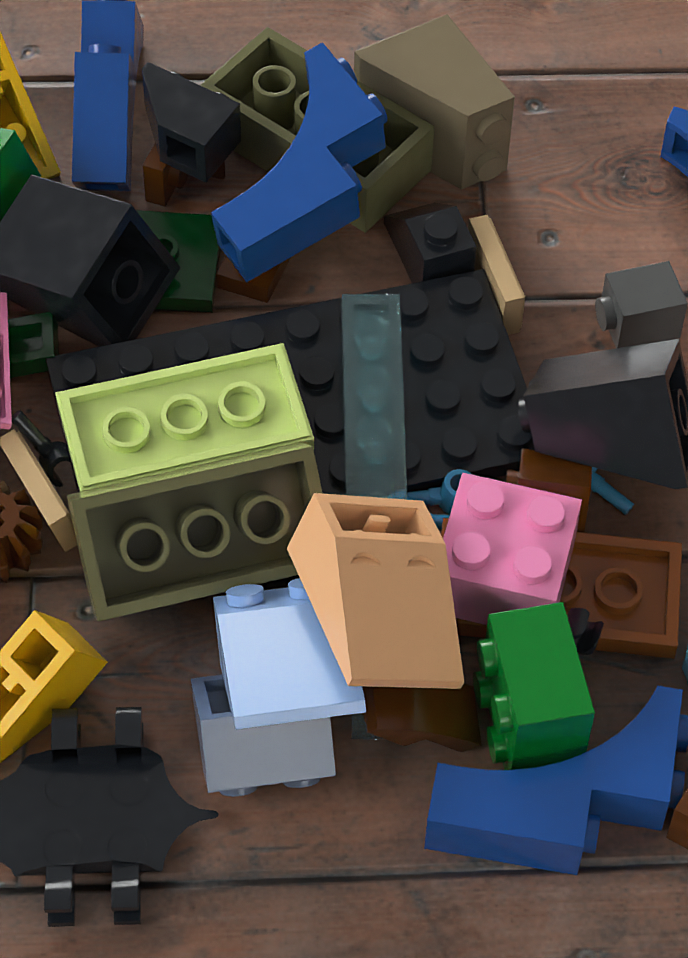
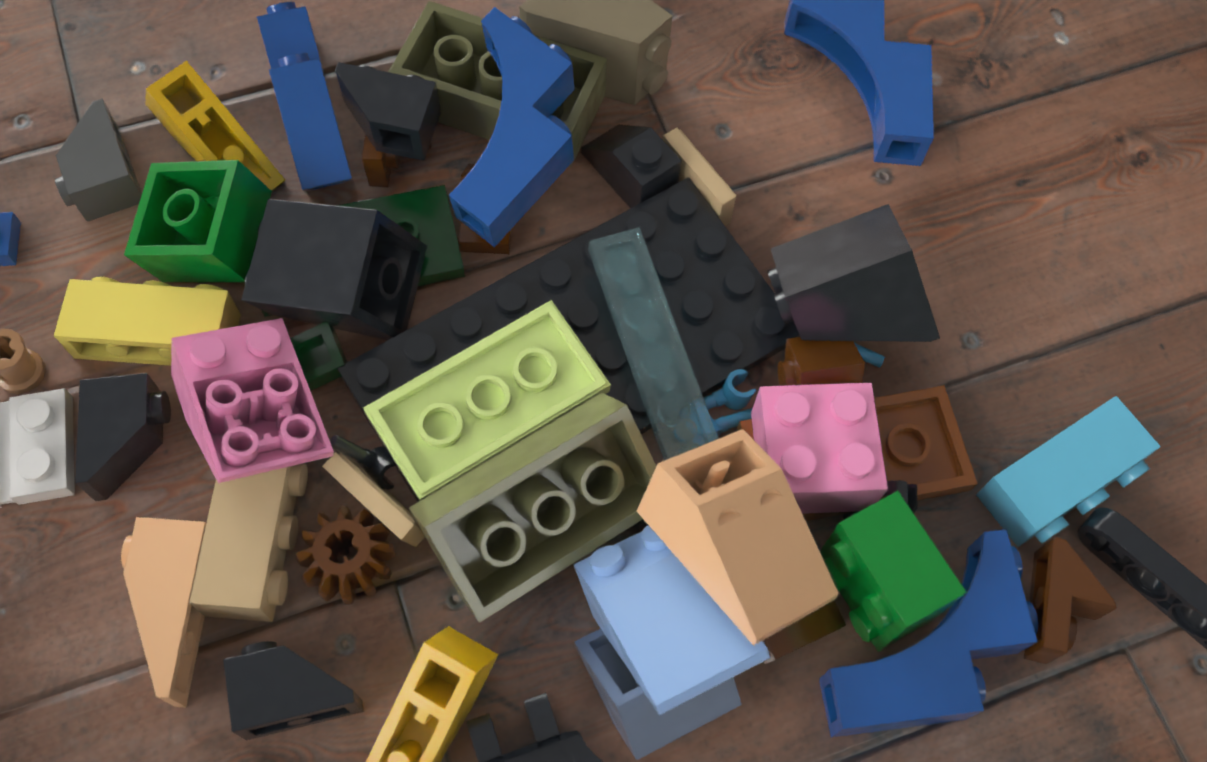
camera: 20 degrees left, 10 degrees up
(642, 305) = (828, 174): dark grey brick -> none

